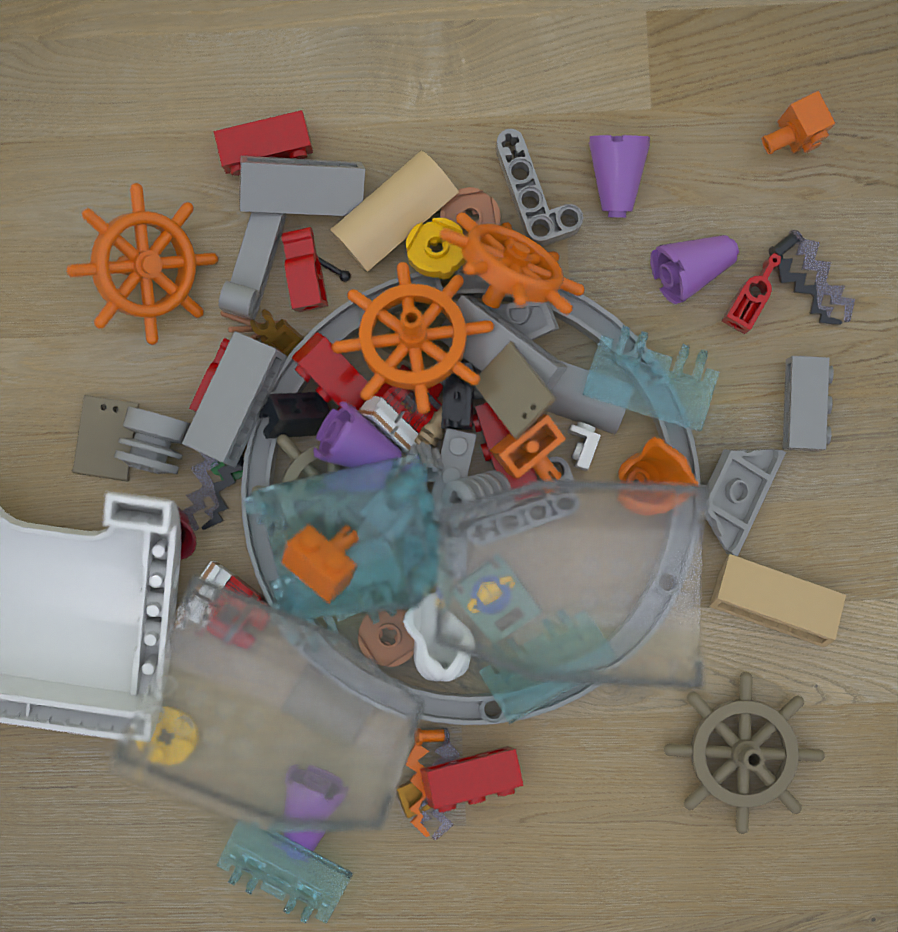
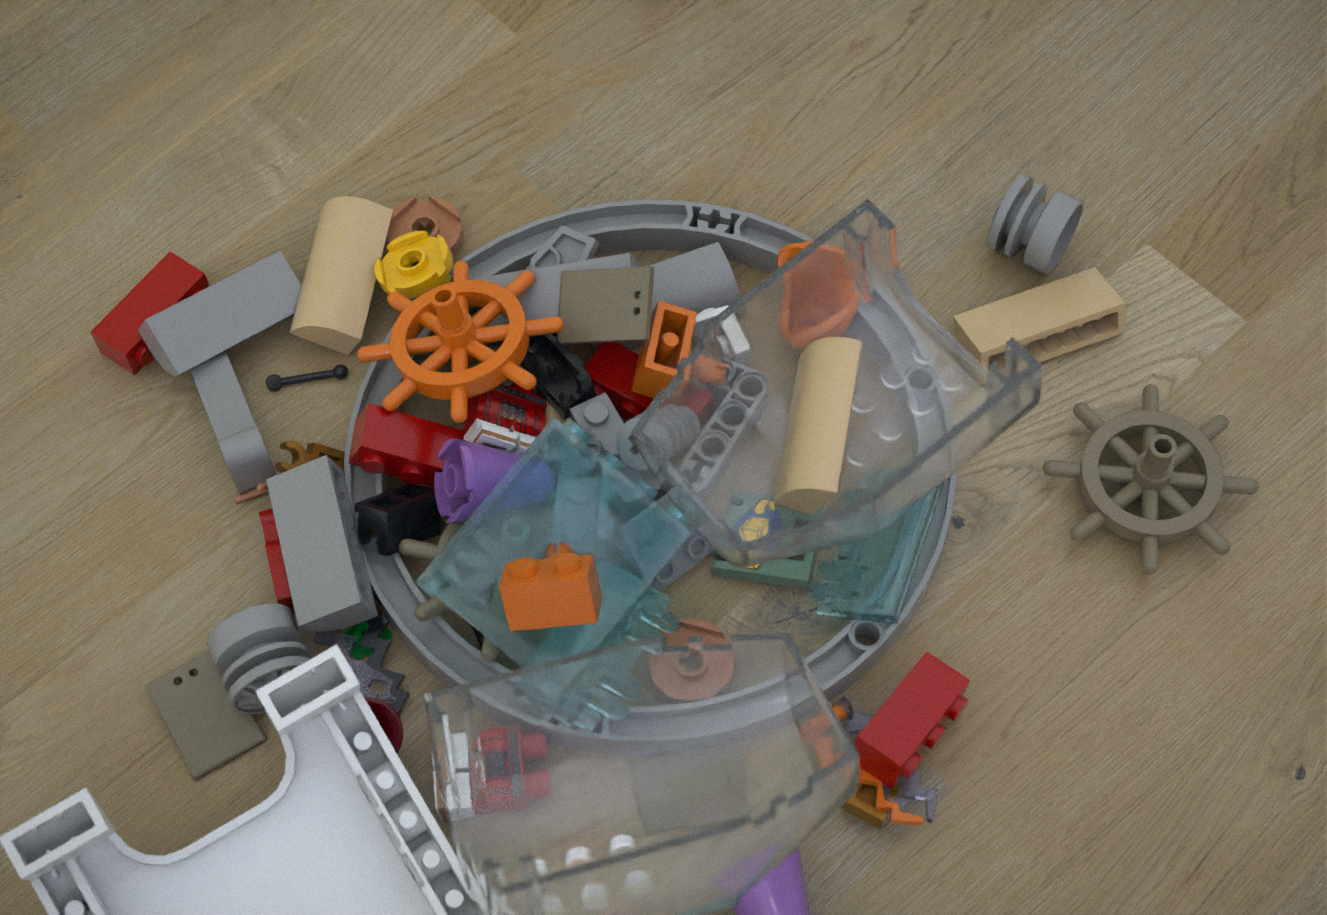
camera: 40 degrees left, 25 degrees down
(142, 264) = (113, 493): orange piece -> none
(303, 271) = (294, 392): red piece -> none
(430, 658) = (745, 613): white piece -> none
(511, 265) = (502, 213): orange piece -> none
(531, 187) = (467, 171): light grey beam -> none
(569, 576) = (818, 424): none -> tan brick
(618, 170) = (530, 87): medium lavender cone -> none
(649, 385) = (730, 229): clear light blue hinge -> none
(691, 265) = (671, 116): medium lavender cone -> none
(738, 492) = (921, 263): light grey wing -> none
(744, 298) = (756, 103): red piece -> none
(807, 403) = (893, 147): light grey brick -> none
(809, 249) = (809, 55): piece -> none
(835, 539) = (1028, 221): none -> light grey wheel

